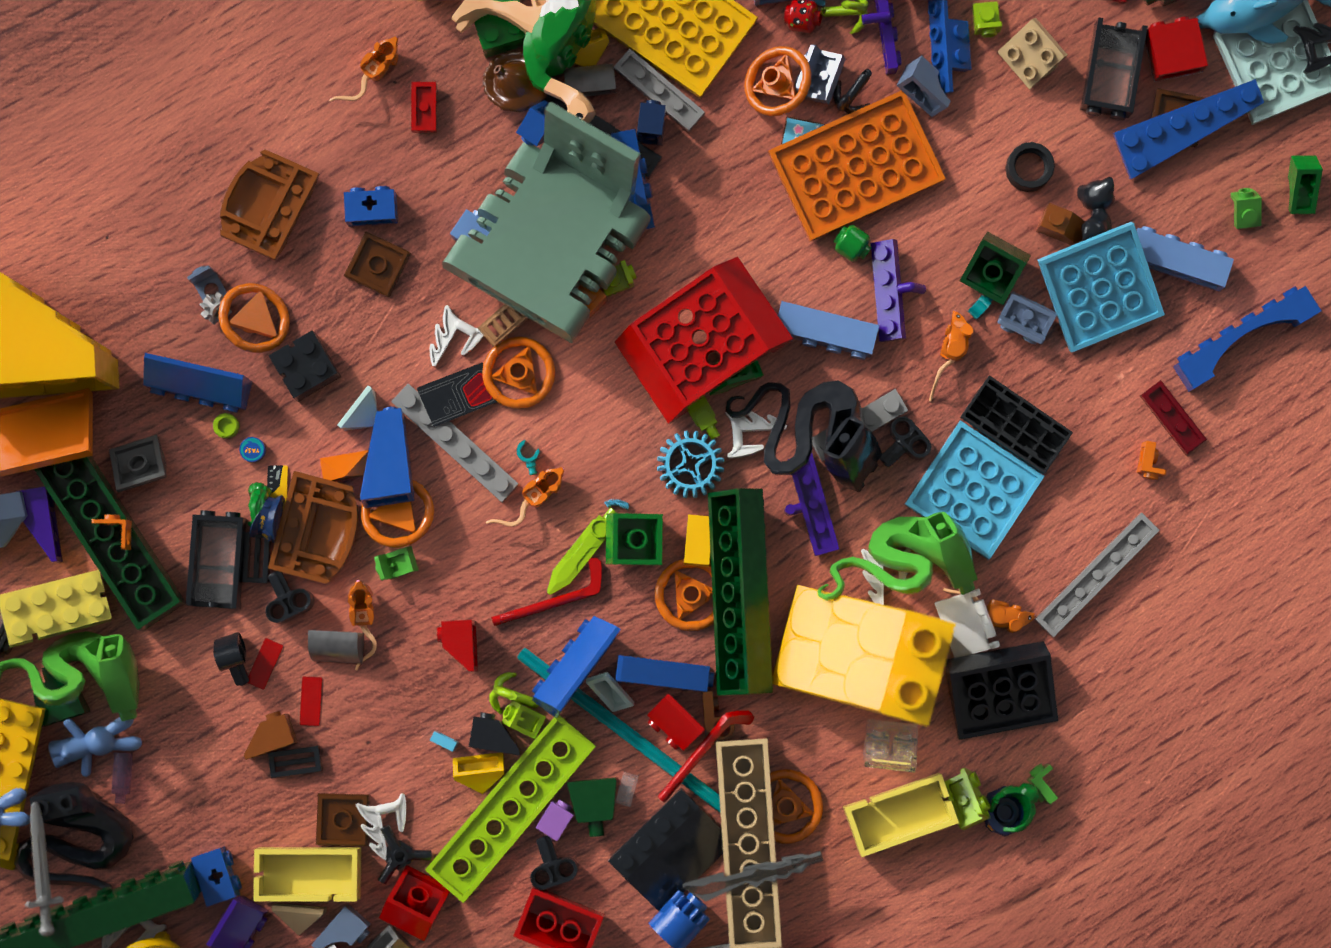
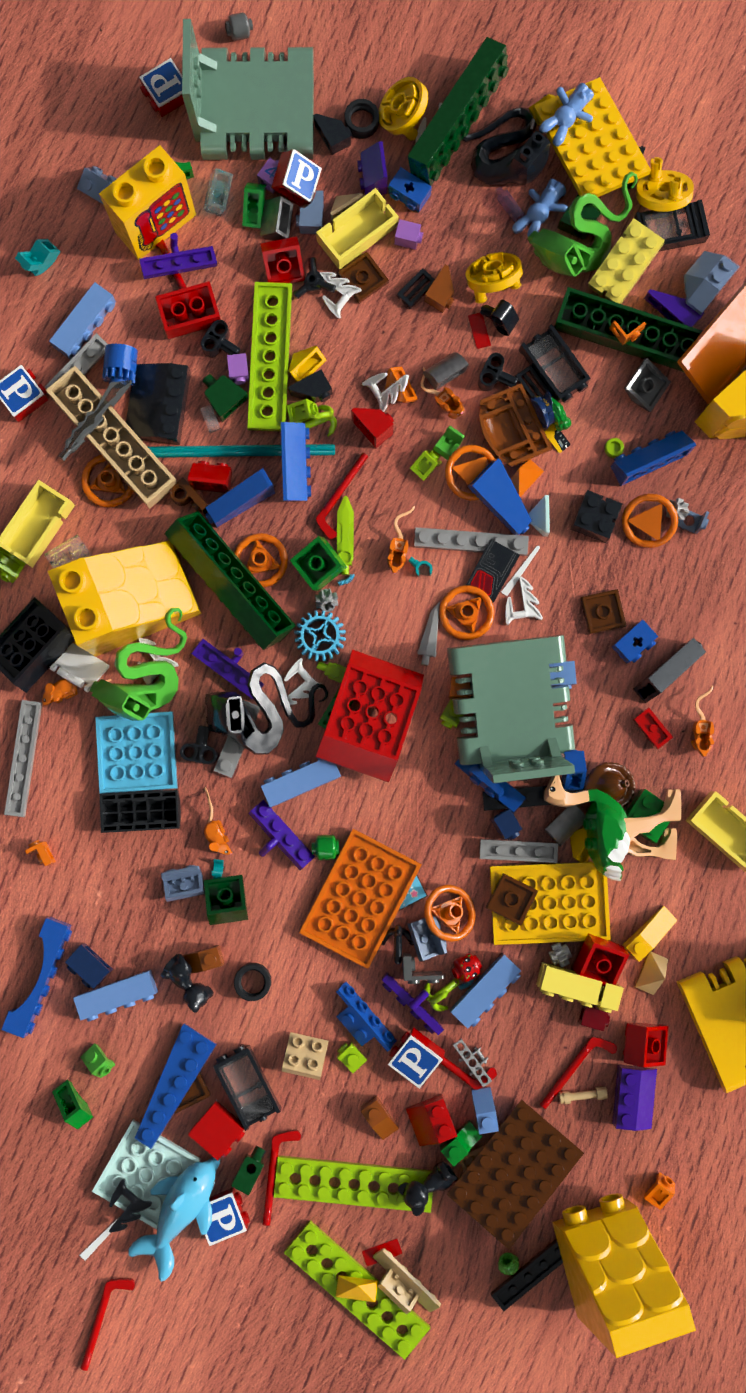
camera: 135 degrees right, 0 degrees up
(41, 872) = (495, 92): light grey sword -> none
(212, 696) = (493, 274): none -> yellow piece
(252, 449) = (587, 445): blue tile -> none
(256, 826) = (408, 234): none -> medium lavender brick
(266, 203) = (699, 595): dark orange slope -> none
(310, 701) = (435, 330): red sticker -> none
(359, 150) = (669, 670): none -> slope
(399, 666) = (395, 374): none -> orange slope
(424, 666) = (392, 391): none -> white piece
(437, 560) = (426, 464): none -> lime bracket
(444, 741) = (338, 364): medium azure tile -> none
(451, 366) = (515, 578): none -> white sticker
(511, 327) = (508, 621): medium nougat slope -> none
(582, 372) = (429, 641): none -> light grey bar
(610, 692) = (269, 464): light aqua slope -> none
(655, 496) = (326, 600): none -> light grey gear
(697, 541) = (280, 593): yellow tile -> none
(704, 47) = (511, 899): none -> reddish brown tile
(735, 717) = (175, 504): red piece -> none
(862, 45) = (408, 966): none -> dark grey bracket
(923, 87) = (358, 980): sand blue arch -> none
(1101, 287) = (150, 937): medium azure plate -> none
(1173, 417) = (47, 892): dark red tile -> none
(1186, 309) = (88, 966): none -> dark blue brick

